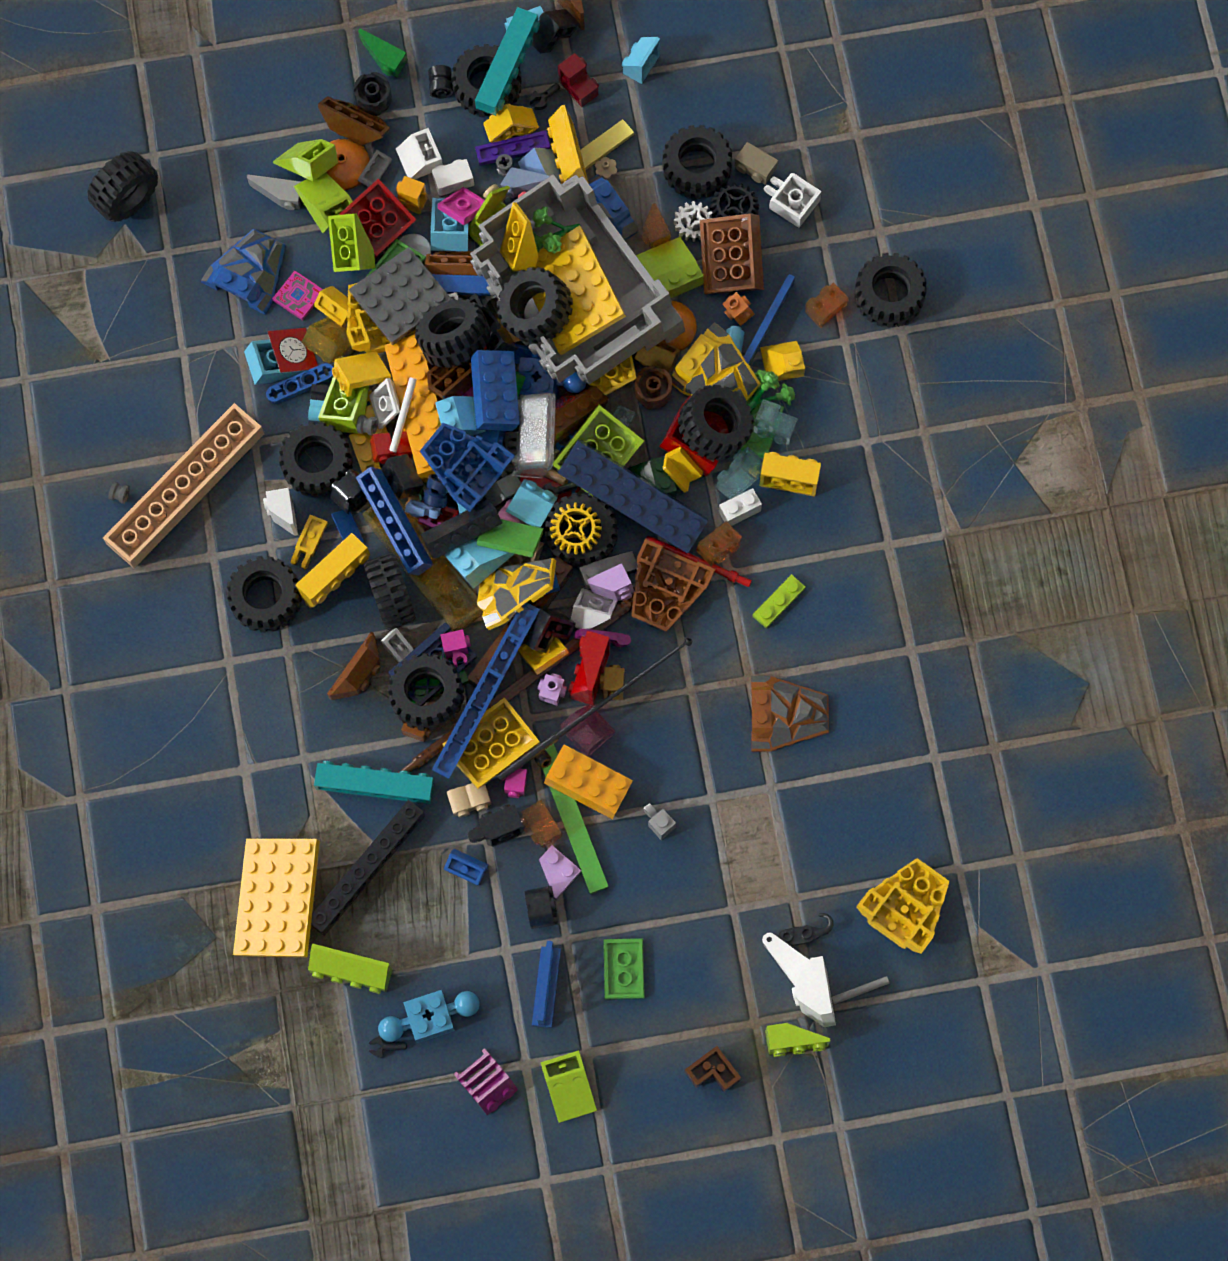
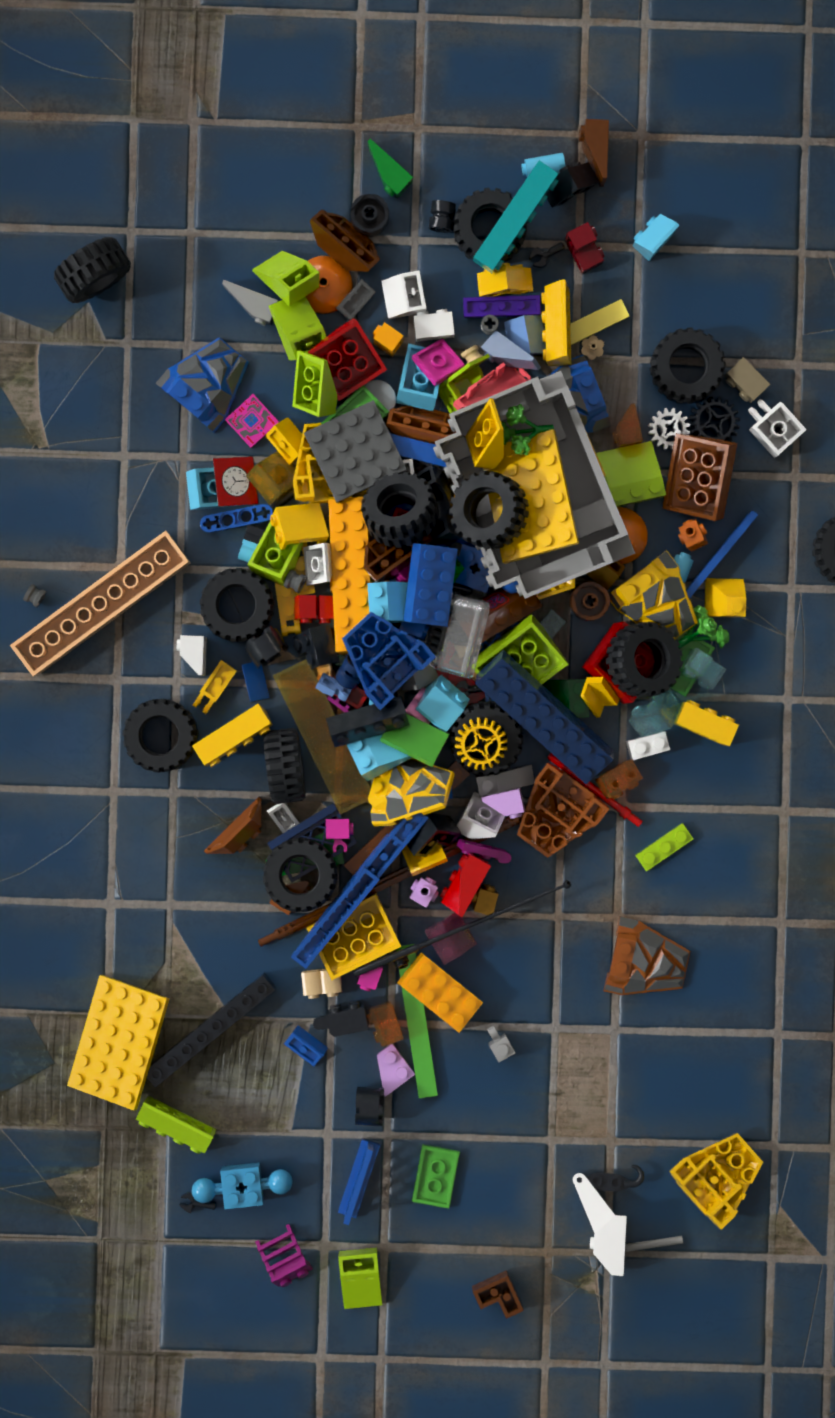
camera: 10 degrees right, 15 degrees up
(374, 783) = (232, 947): teal brick -> none
(394, 521) = (302, 695): blue brick -> none
(403, 414) = (332, 585): white bar -> none
(790, 1038) = (576, 1281): lime slope -> none
(826, 304) = (782, 549): clear orange brick -> none

